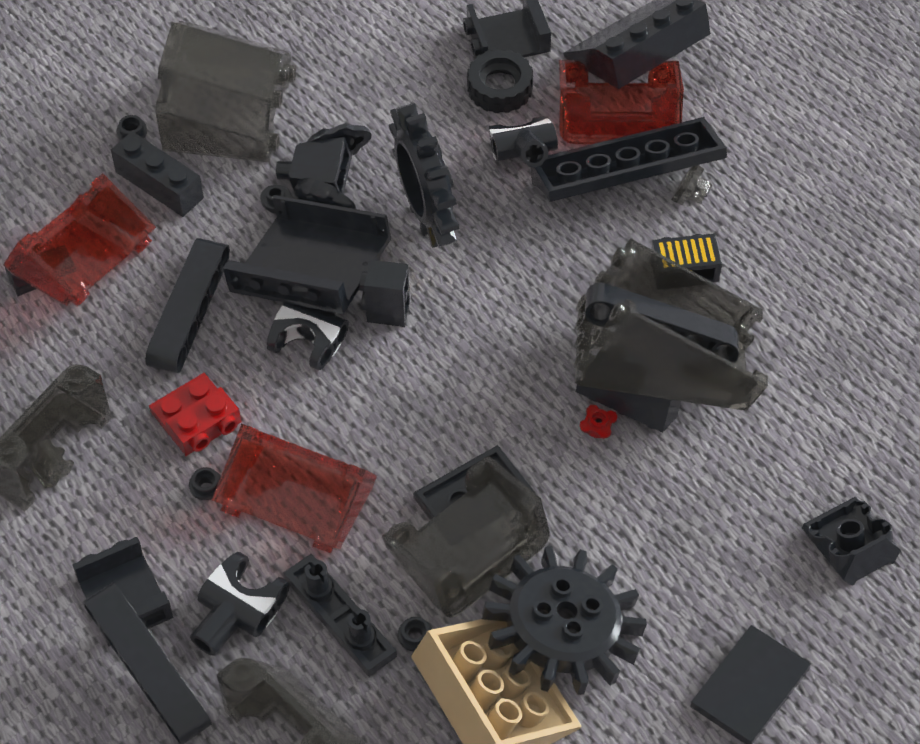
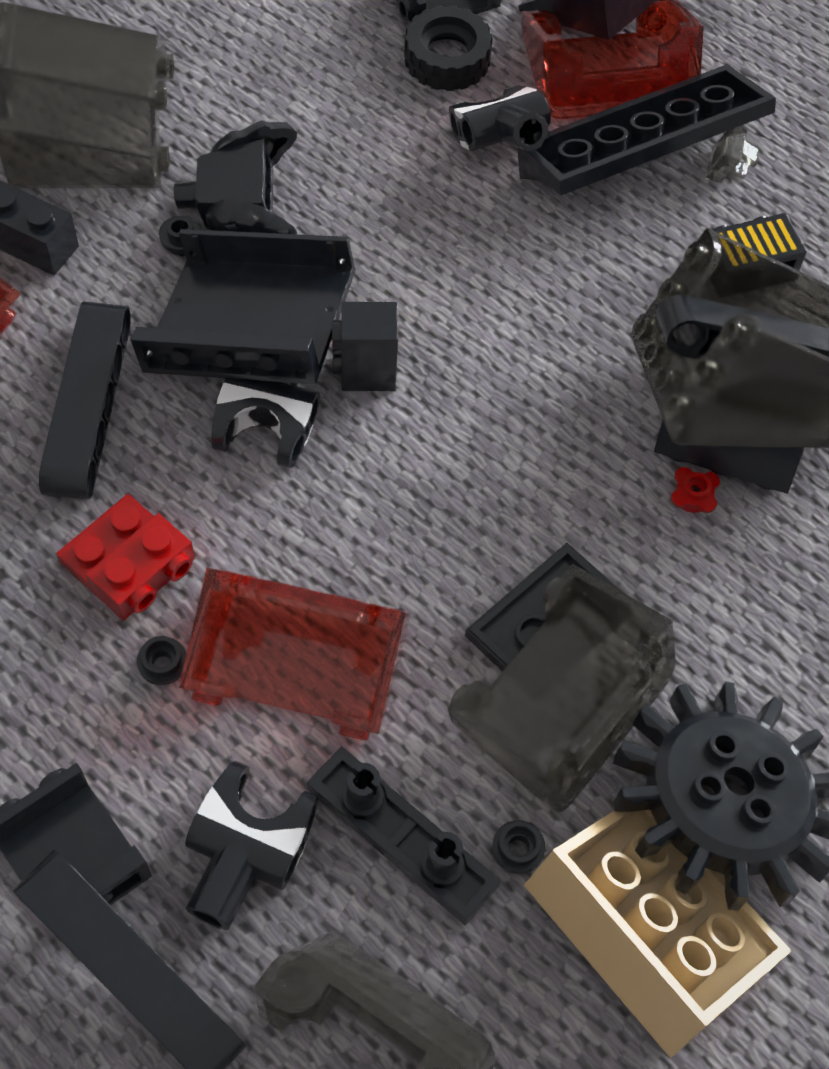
camera: 15 degrees left, 5 degrees up
(424, 175) = (392, 174): black gear -> none

